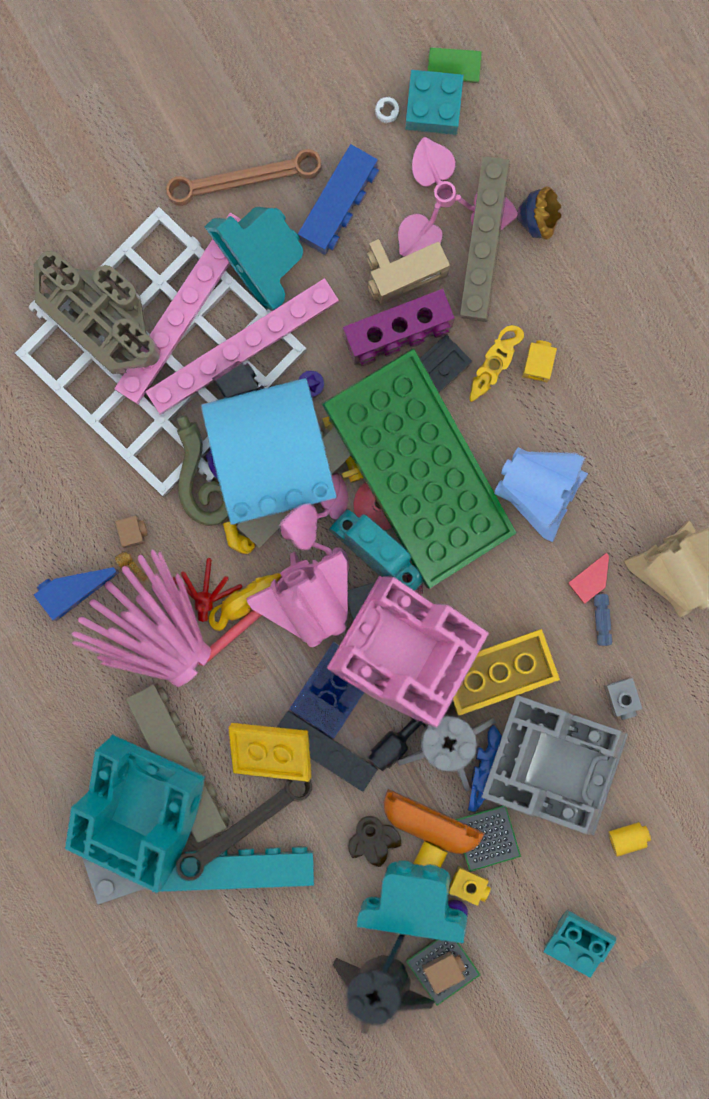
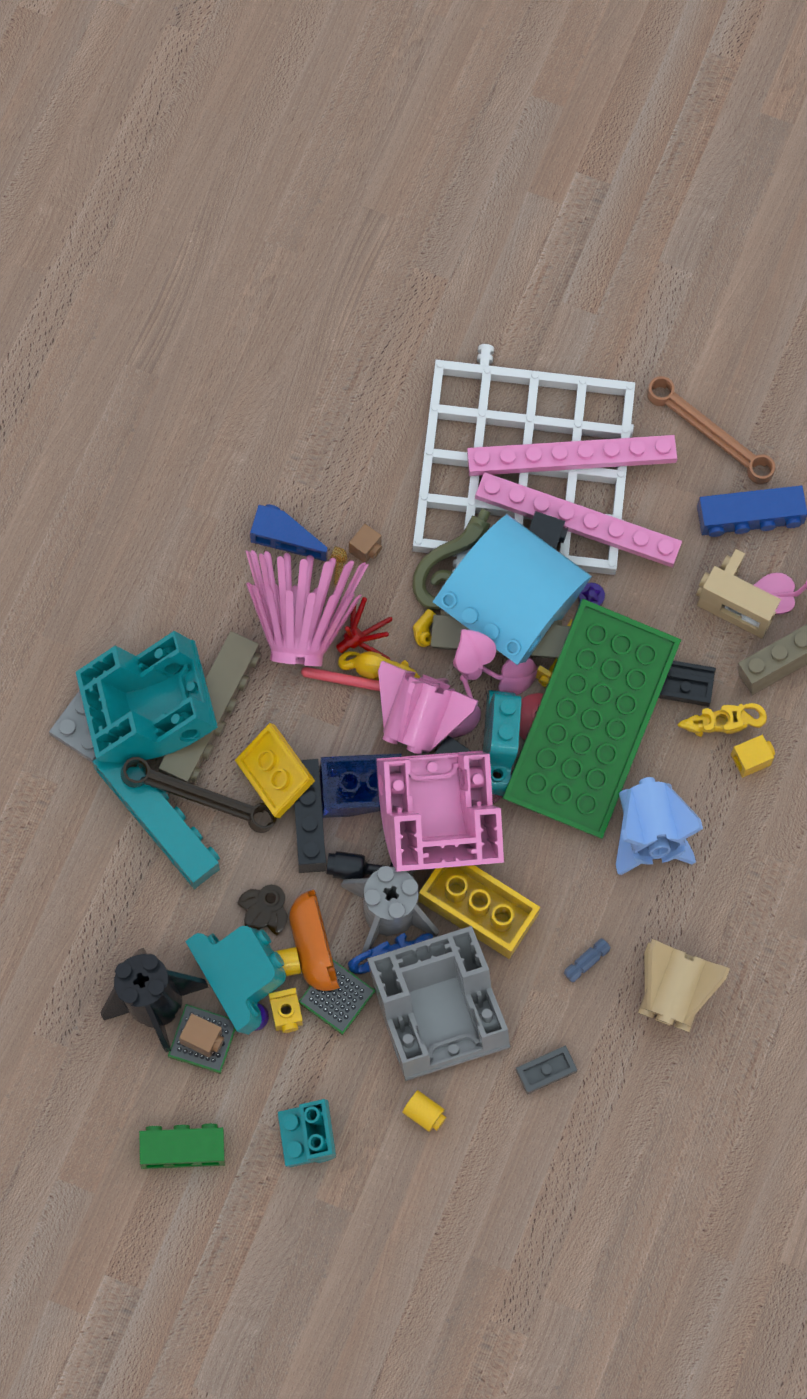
camera: 50 degrees right, 15 degrees down
(98, 303) = (524, 388): dark tan connector -> none
(259, 250) = (662, 476): teal brick -> none
(431, 306) = (689, 617): magenta brick -> none
(516, 1048) = (182, 1147): none -> green brick
(591, 580) = (612, 927): coral tile -> none
(623, 698) = (536, 1021): light grey brick -> none
(665, 719) = (546, 1070): none -> dark grey plate

